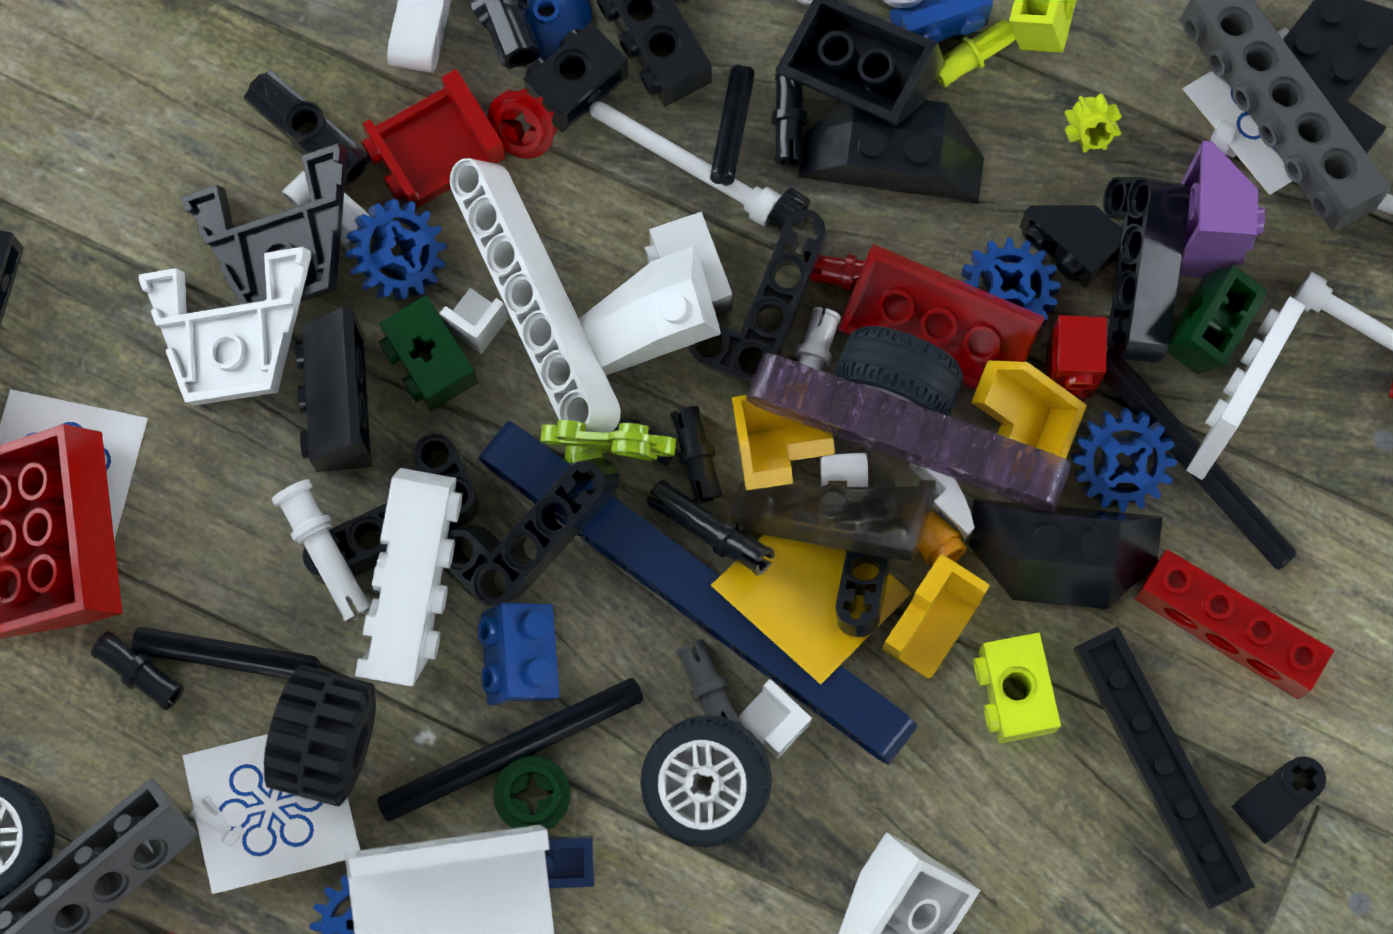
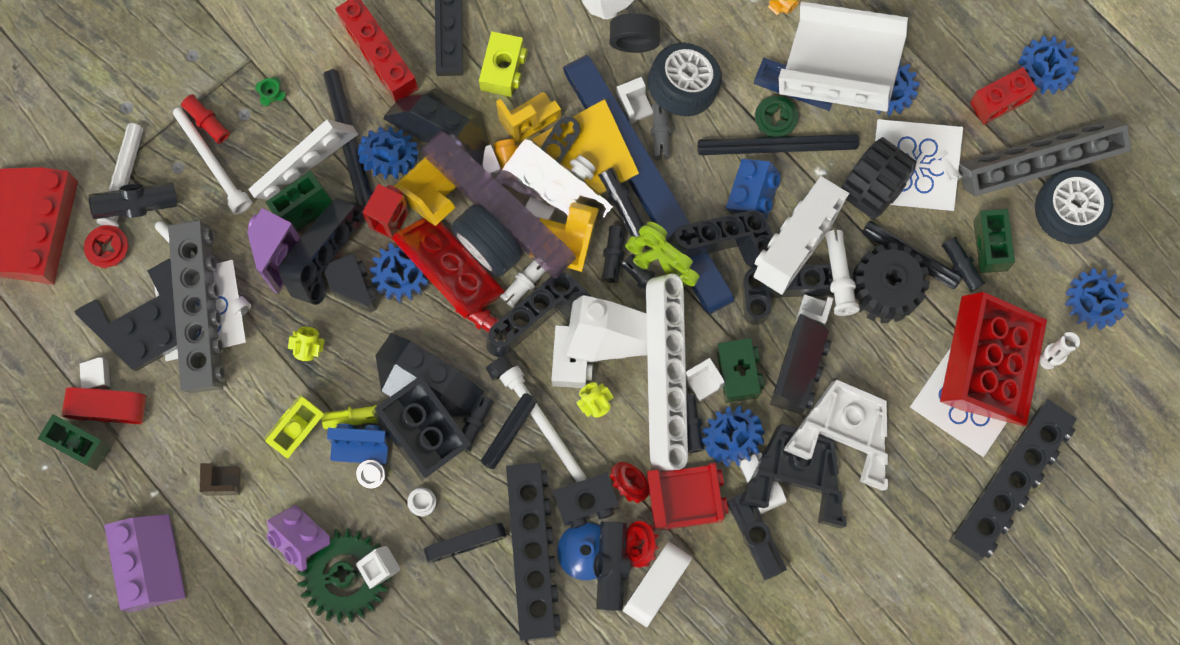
camera: 155 degrees left, 0 degrees up
(97, 720) = (994, 241): none -> dark green brick
(263, 596) = (878, 295): none -> black wheel
(345, 490) = (815, 309): none -> white panel
(461, 33) = (635, 535): none -> red gear
(464, 247) = (694, 434): none -> black pin
(625, 219) = (595, 399): none -> neon yellow gear
(804, 557) = (582, 168): none -> white plate
(824, 827) = (634, 33): none -> black tyre
(1367, 476) = (270, 84): none -> green plate

